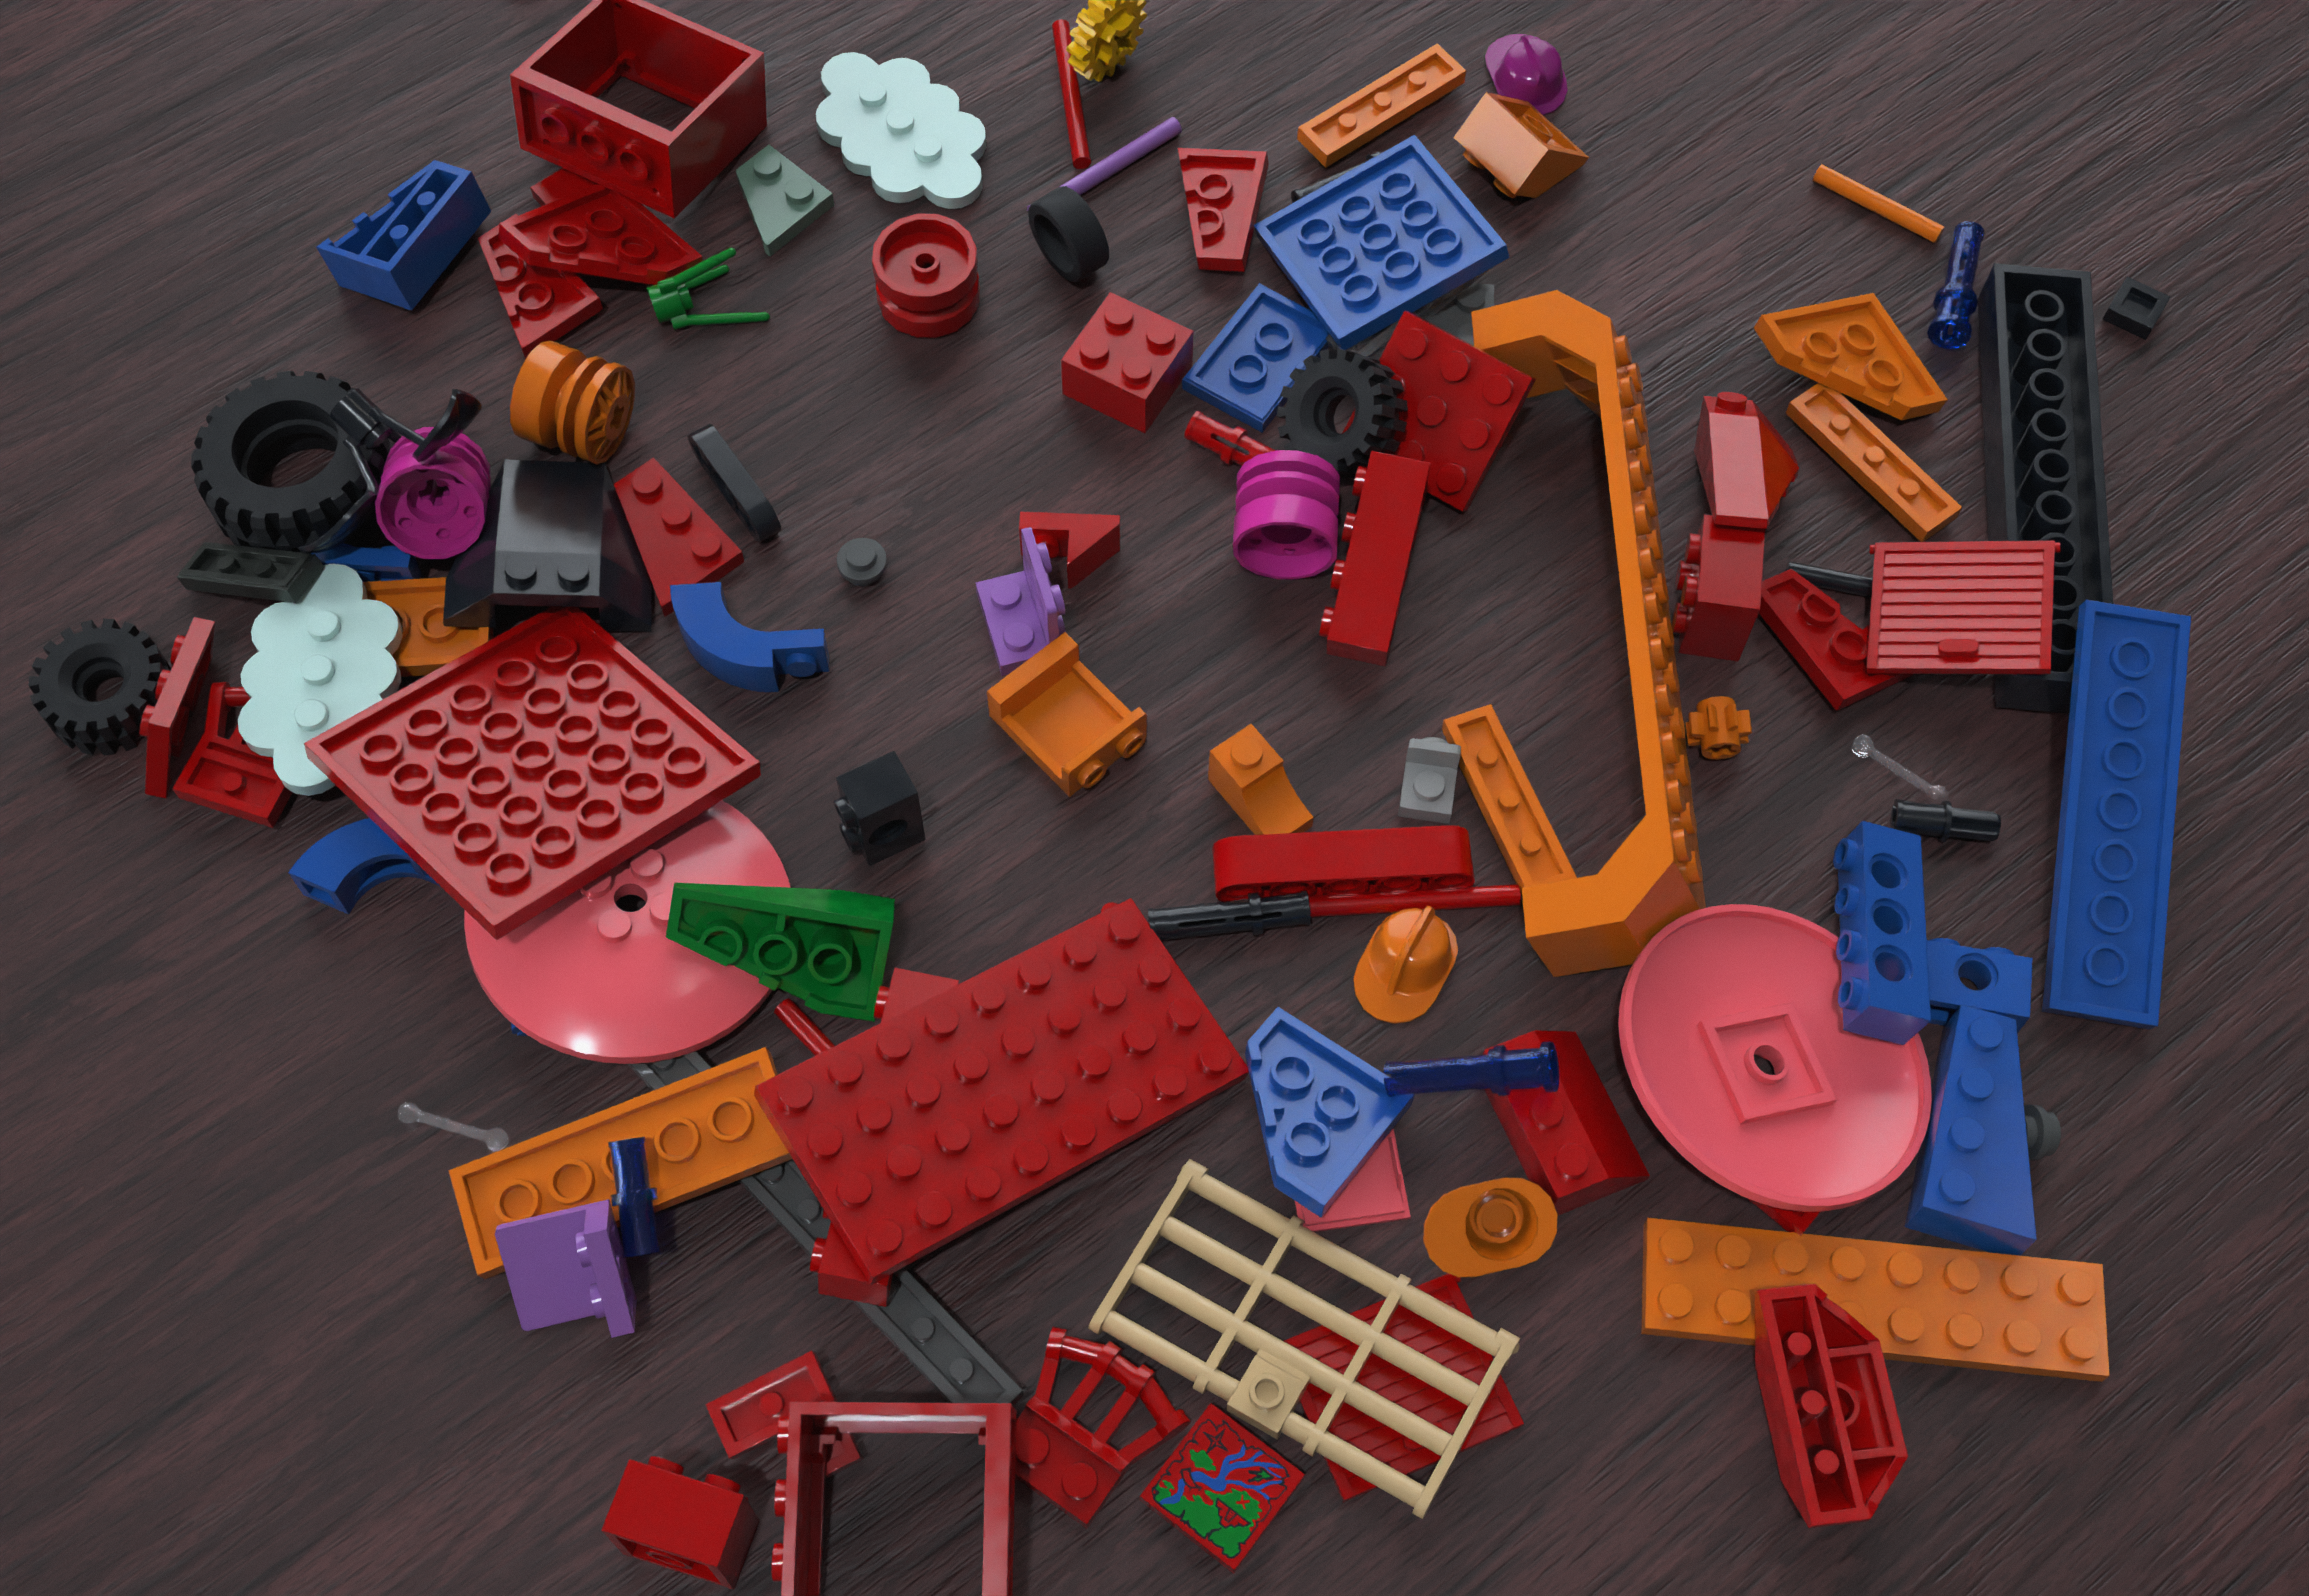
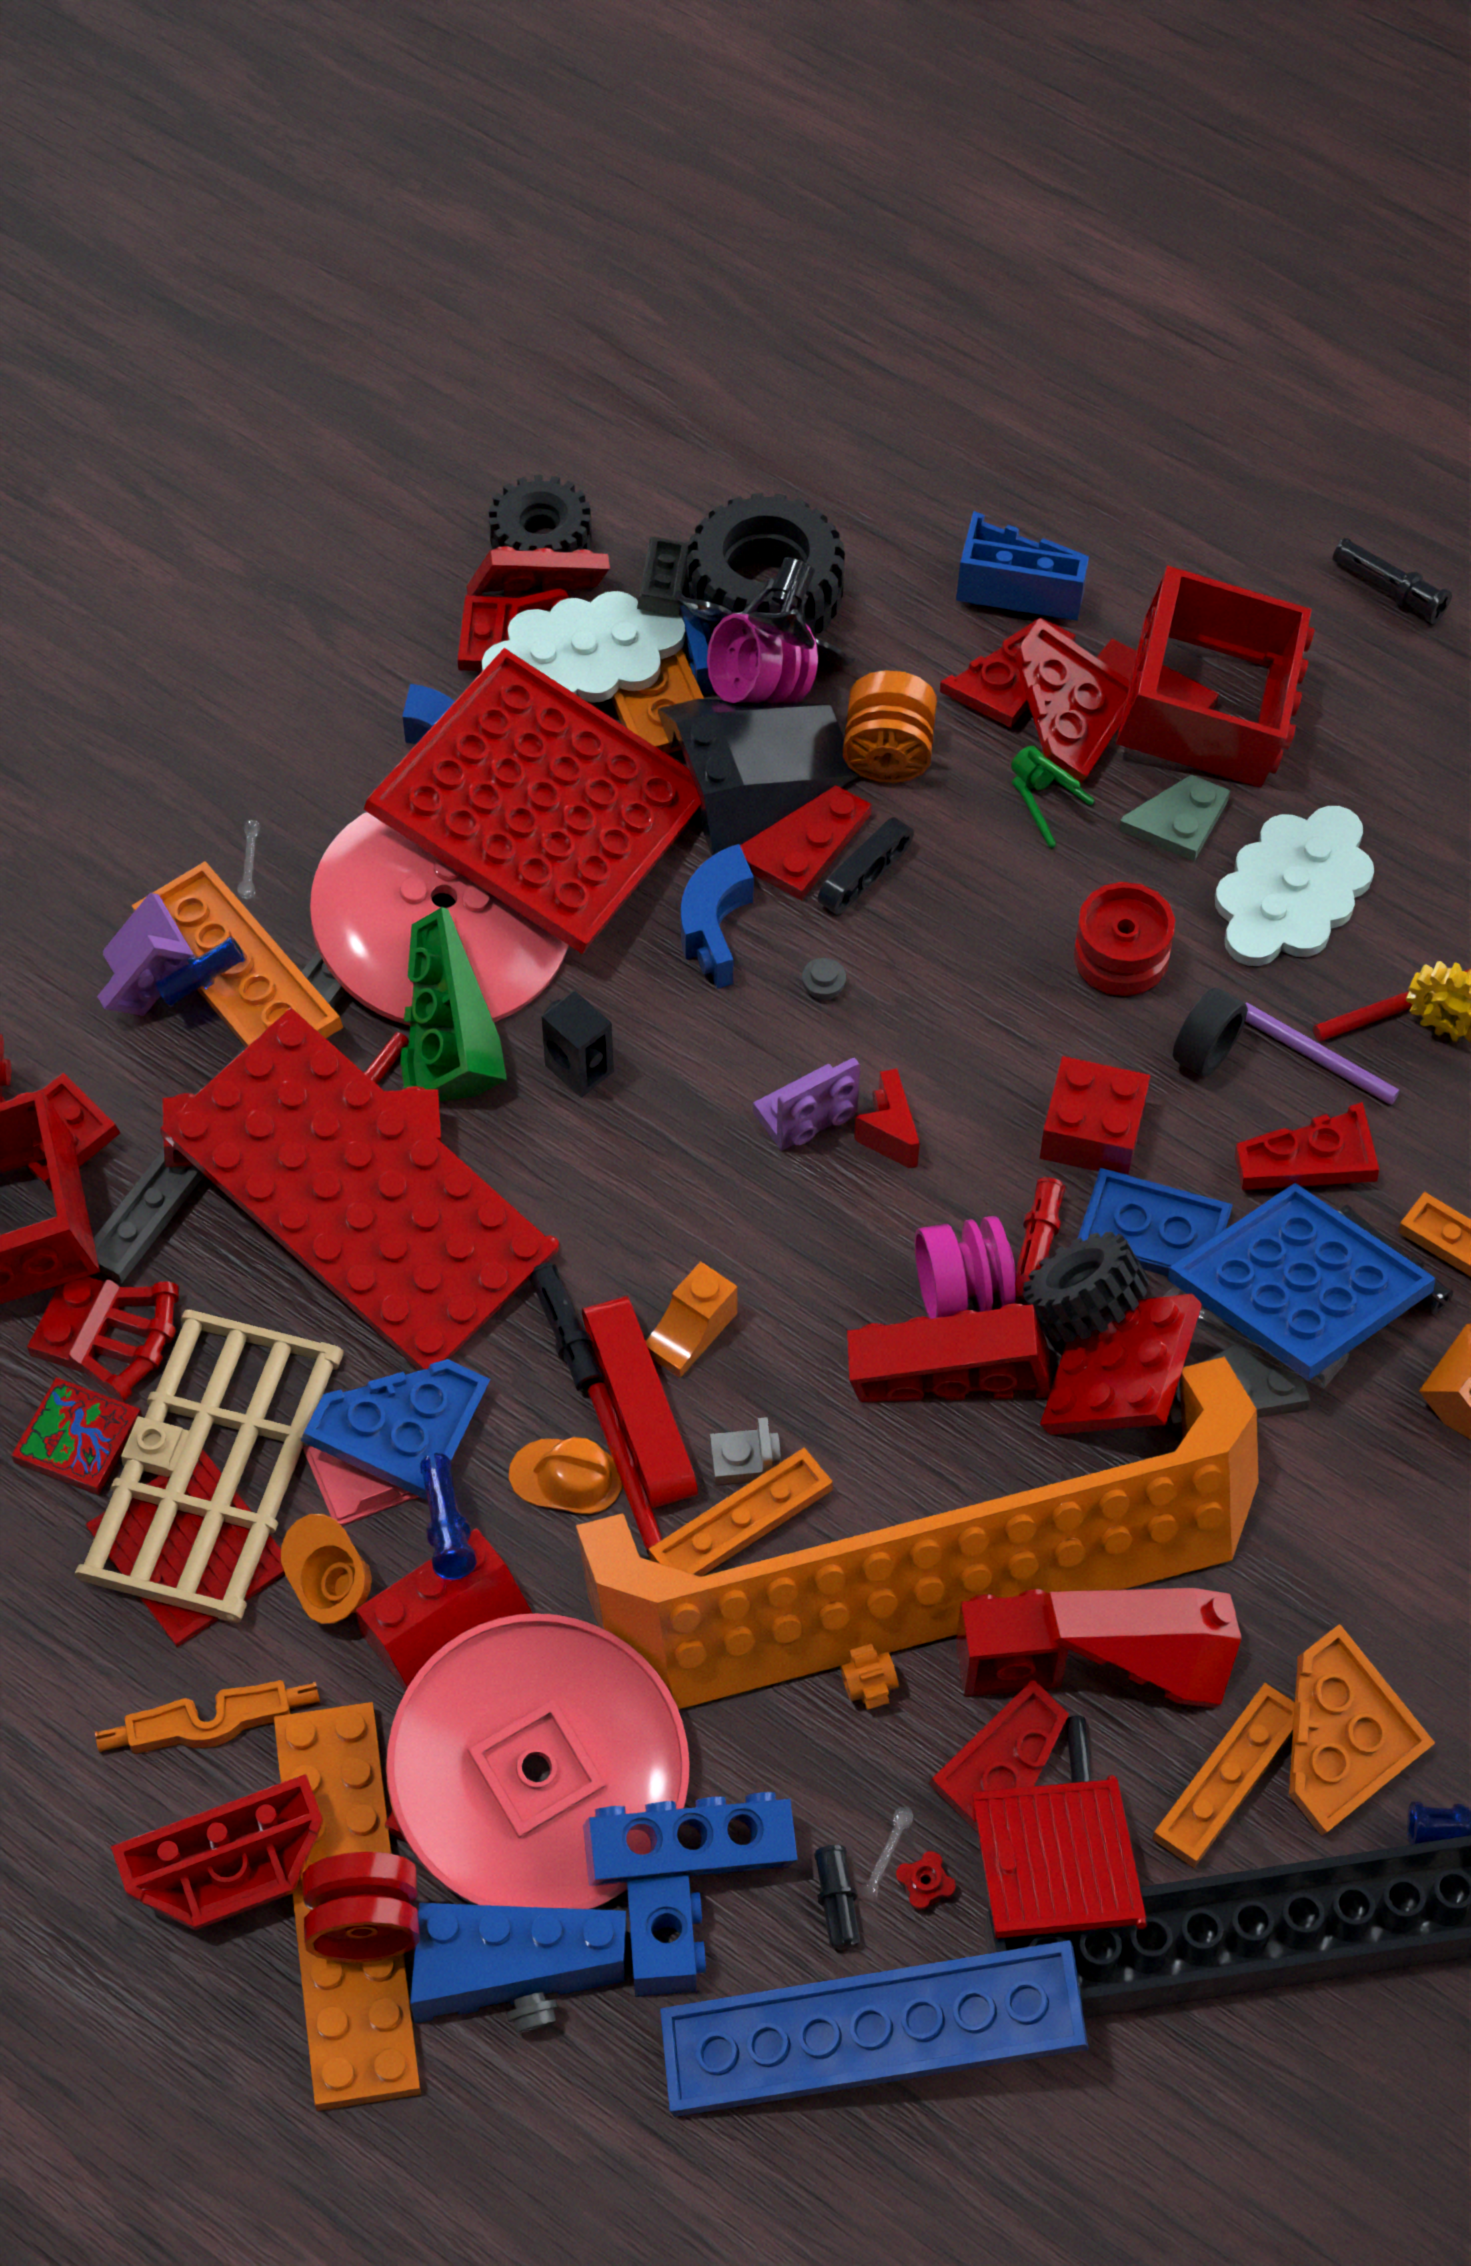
camera: 75 degrees right, 5 degrees down
(1065, 716) = (721, 1162): orange panel -> none
(1626, 1435) = (180, 1722): none -> orange piece
(1935, 752) = (921, 1894): none -> red plate
(1938, 1260) = (360, 1907): none -> red wheel

